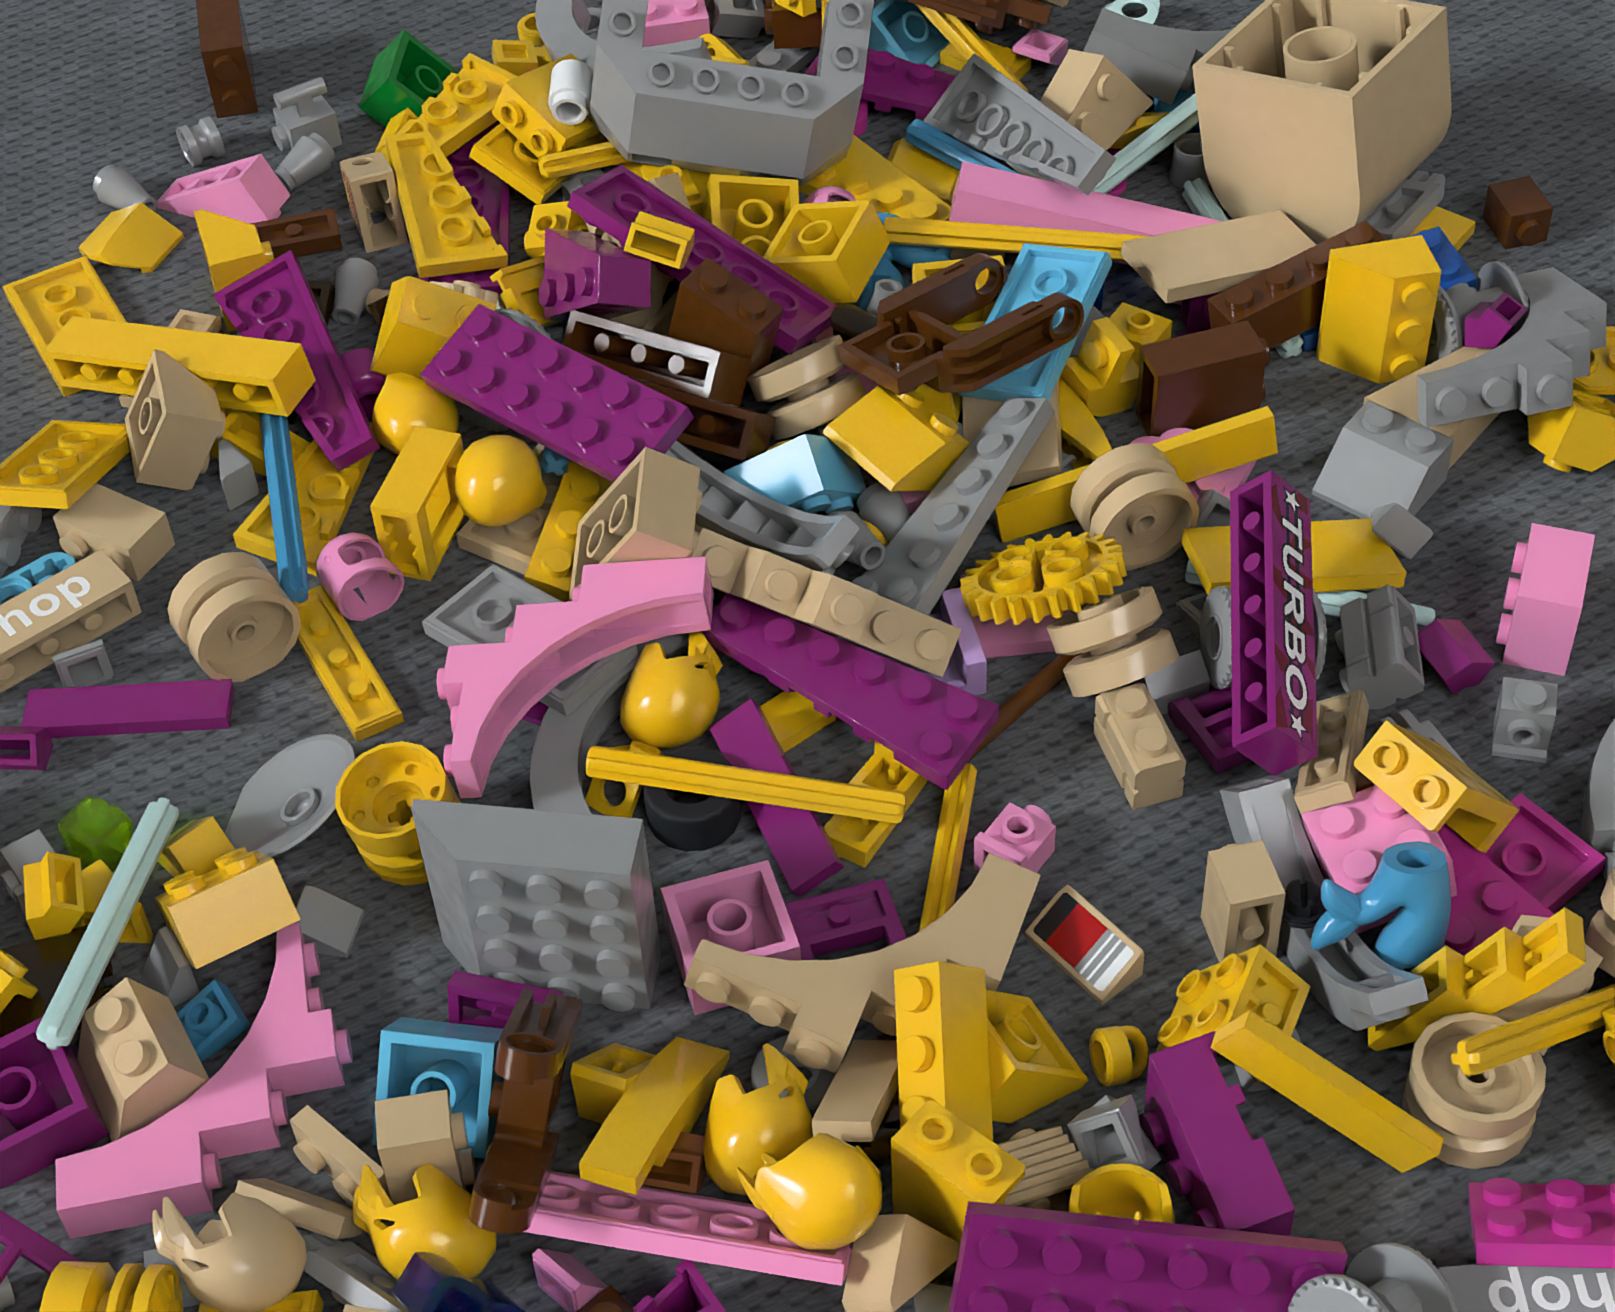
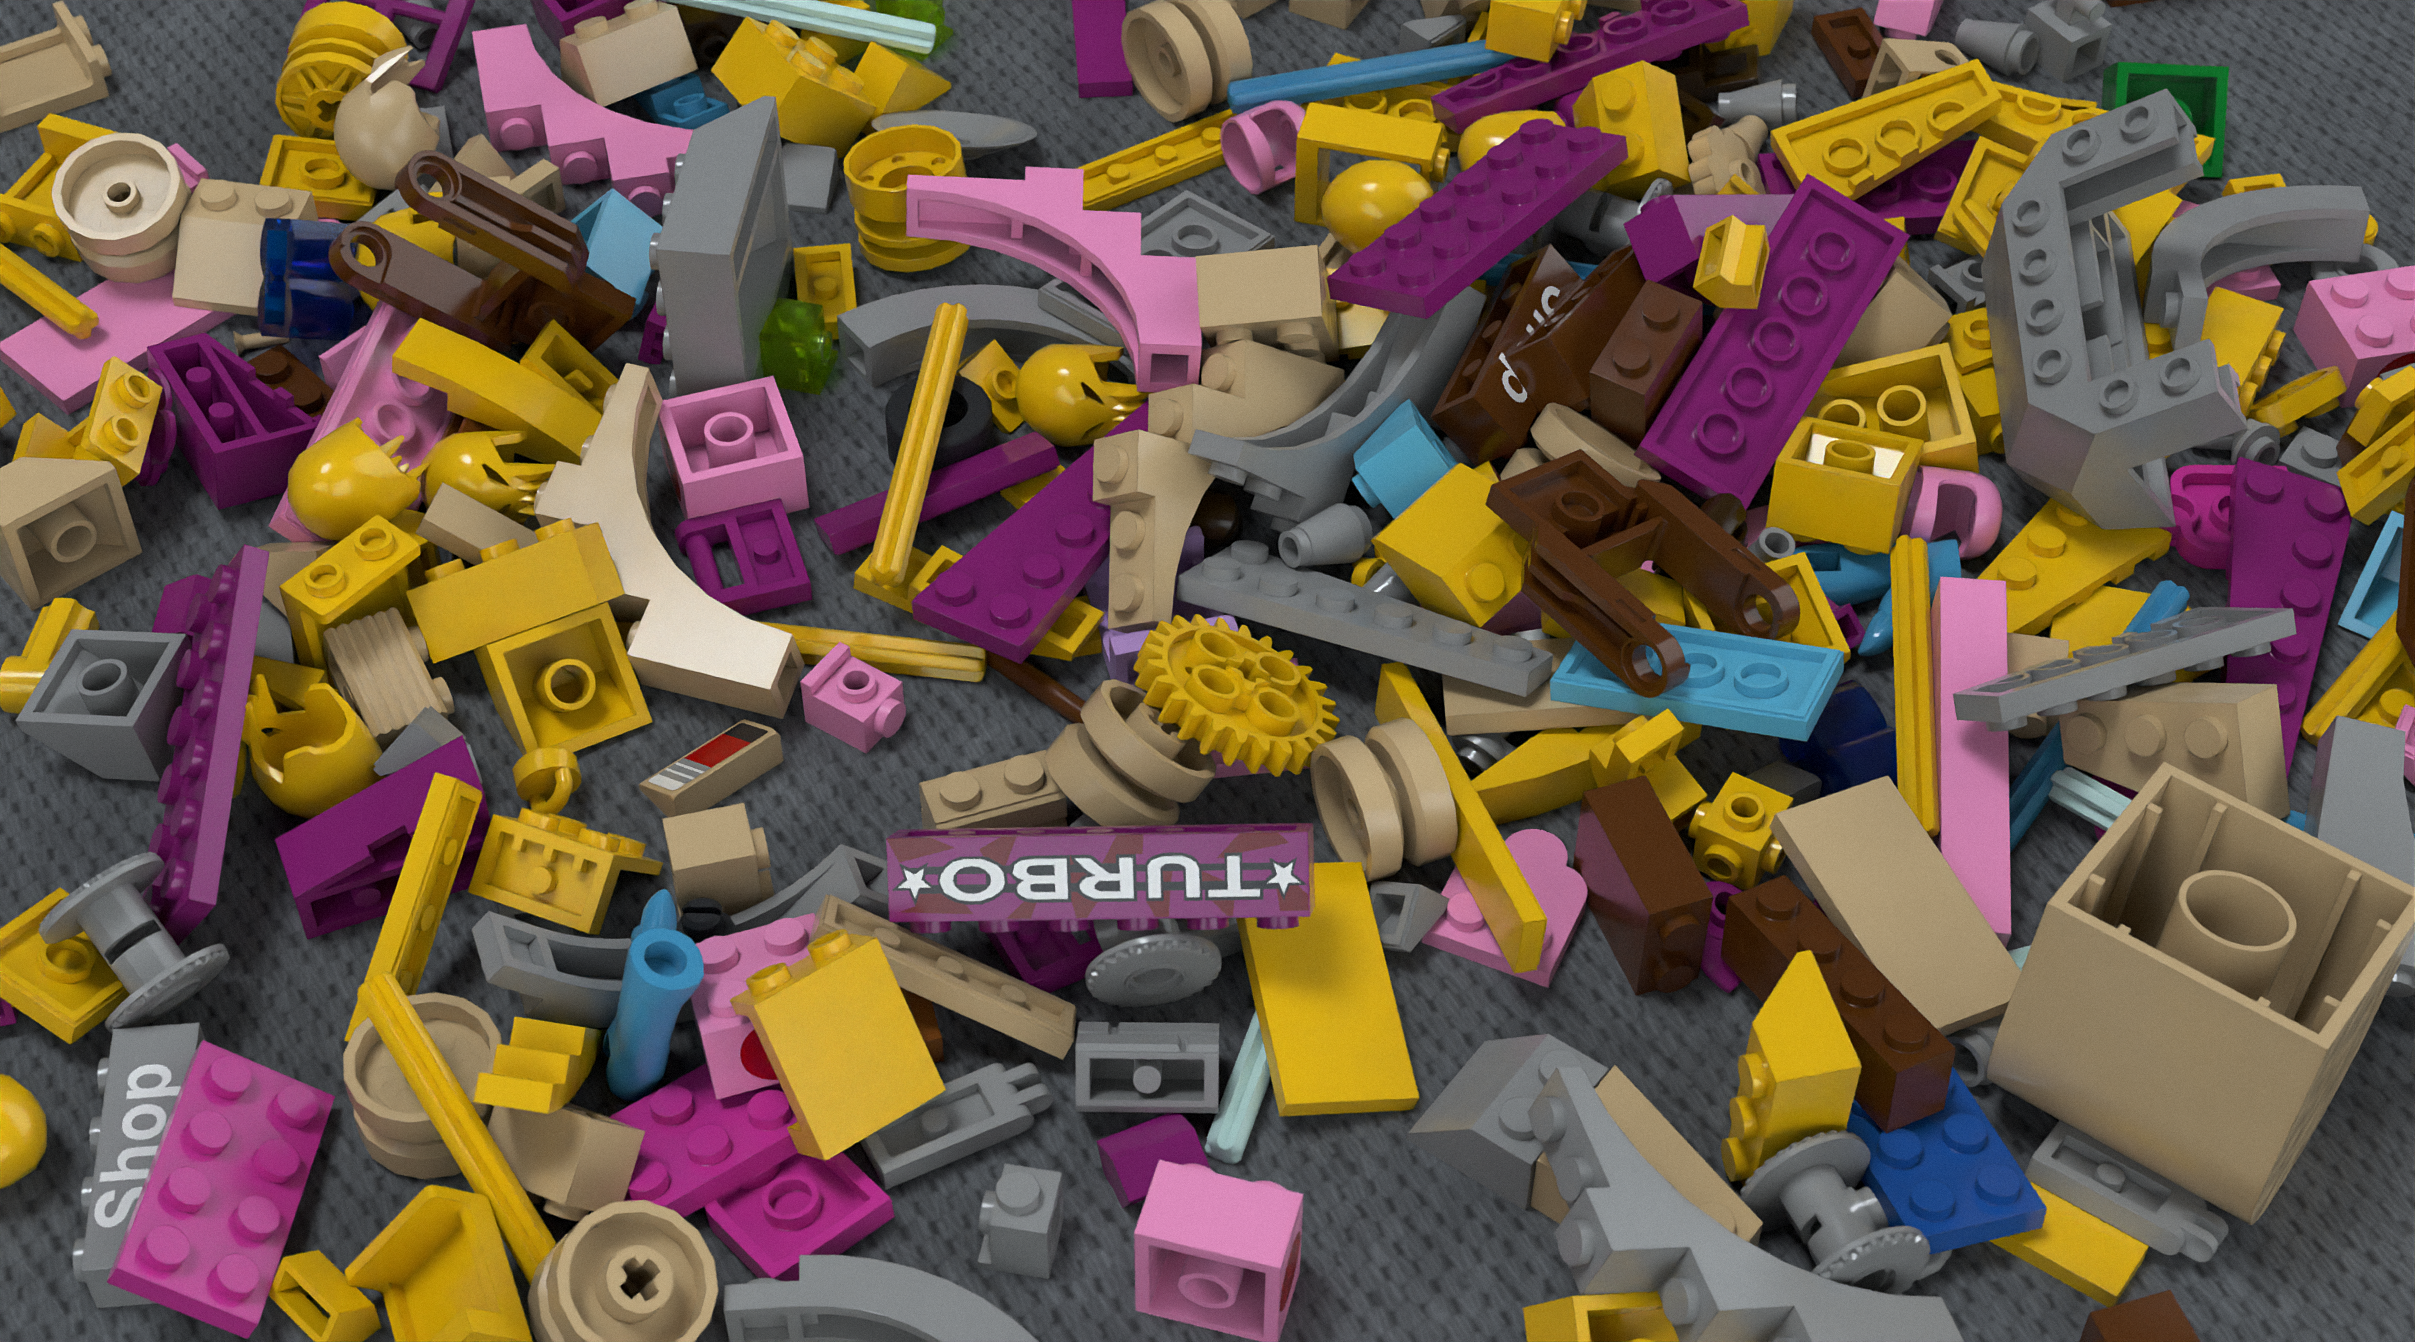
camera: 85 degrees right, 0 degrees up
(1400, 529) = (1379, 1109): light grey slope -> none
(1492, 321) = (1764, 1227): magenta piece -> none

